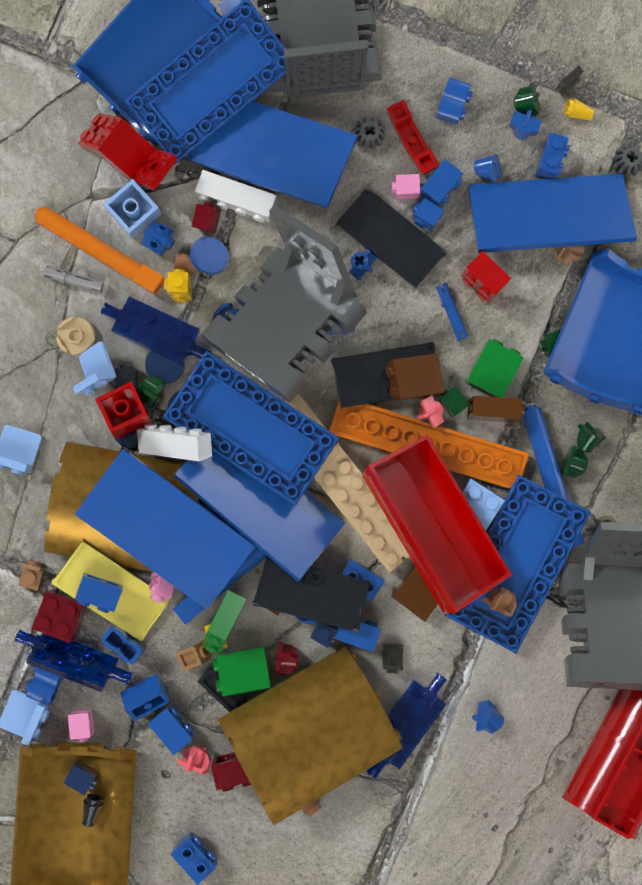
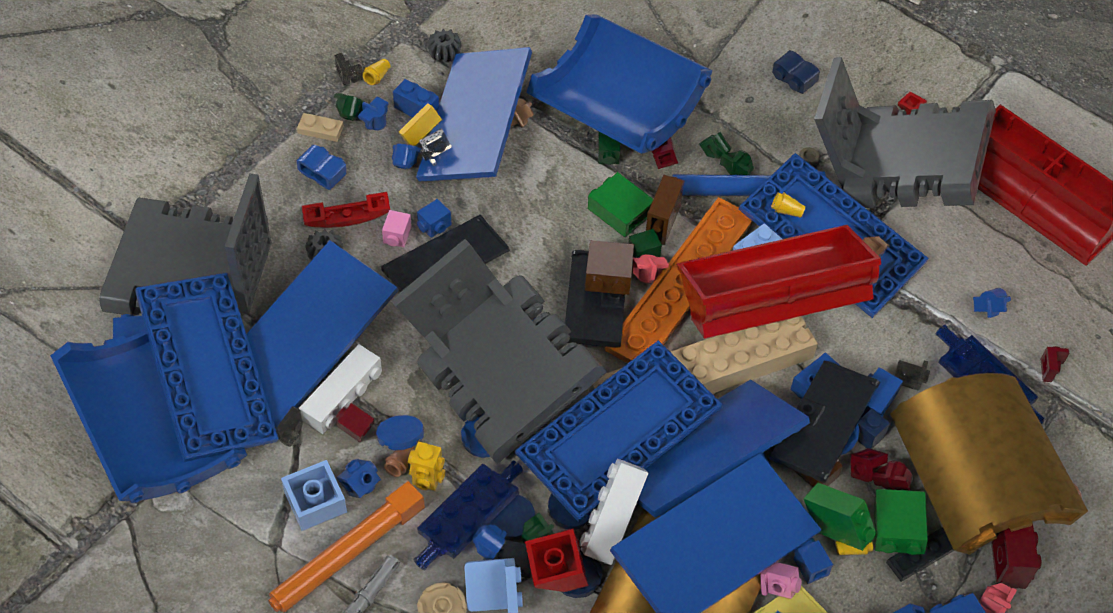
camera: 75 degrees left, 30 degrees down
(127, 151) = (243, 477): red bracket -> none
(130, 354) = (489, 541): none -> blue piece
(193, 656) = (872, 574): medium nougat bracket -> none
(291, 635) = (865, 461): none -> dark red bracket
(415, 595) = (842, 329): reddish brown brick -> none
(437, 776) = (1051, 362): none -> dark red bracket
(442, 183) = (406, 195): blue brick -> none
(448, 303) = (546, 225): blue pin -> none
(485, 277) = (522, 181): red brick -> none
(498, 187) = (434, 145): none -> clear smoke bracket
(500, 84) = (320, 127): none -> tan plate
(523, 169) = (420, 125): none -> yellow tile
(526, 517) = (787, 205): none -> yellow cone
(564, 396) = (665, 154): none -> dark red brick

